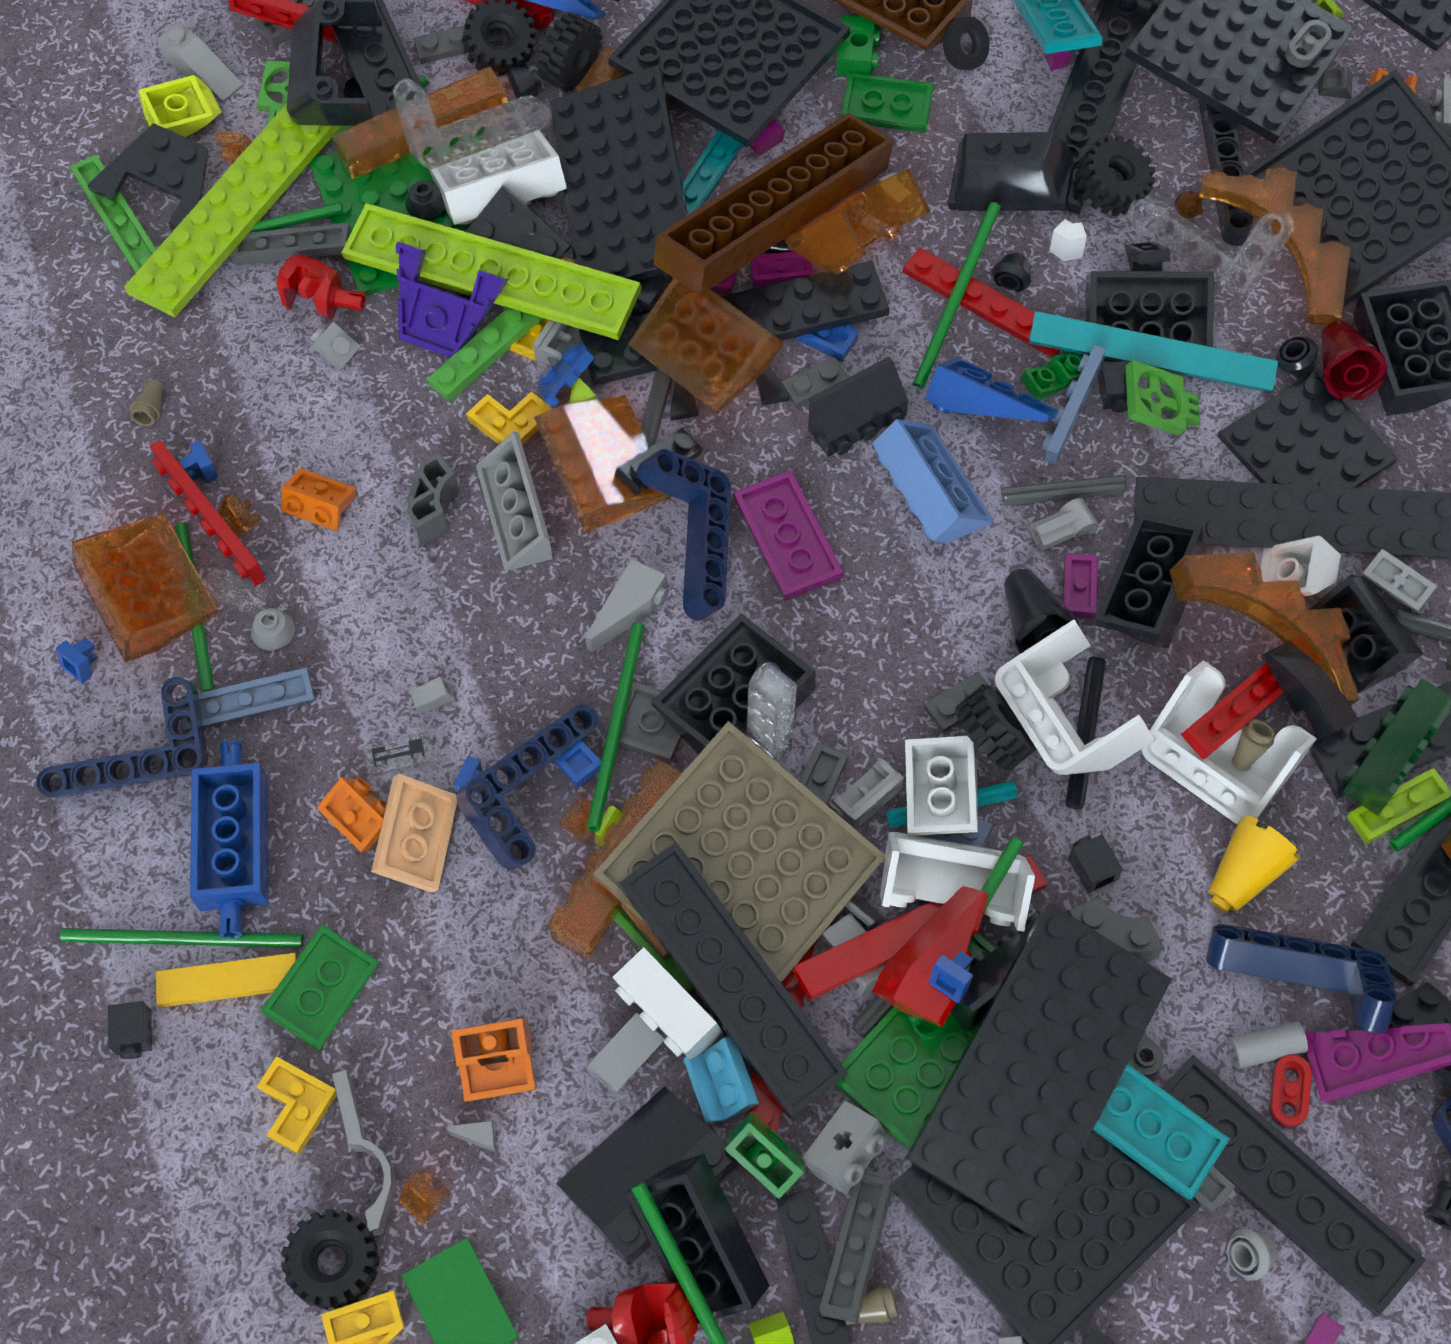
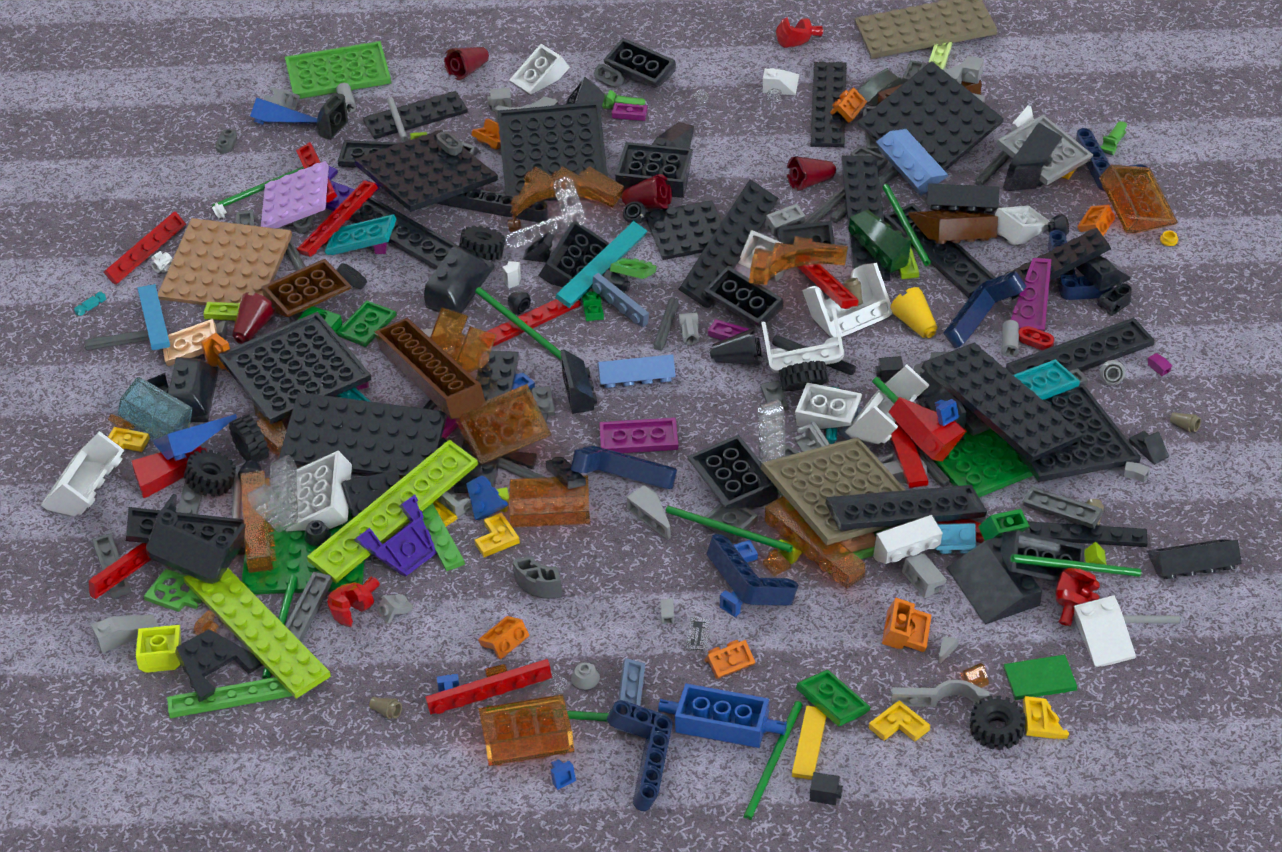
camera: 70 degrees left, 20 degrees down
(415, 833) = (756, 631): light nougat plate -> none
(513, 505) = (559, 542): light grey slope -> none
(845, 1147) = (1008, 496): light grey brick -> none
(969, 390) = (586, 340): blue wedge -> none
(1310, 689) = (834, 261): black slope -> none

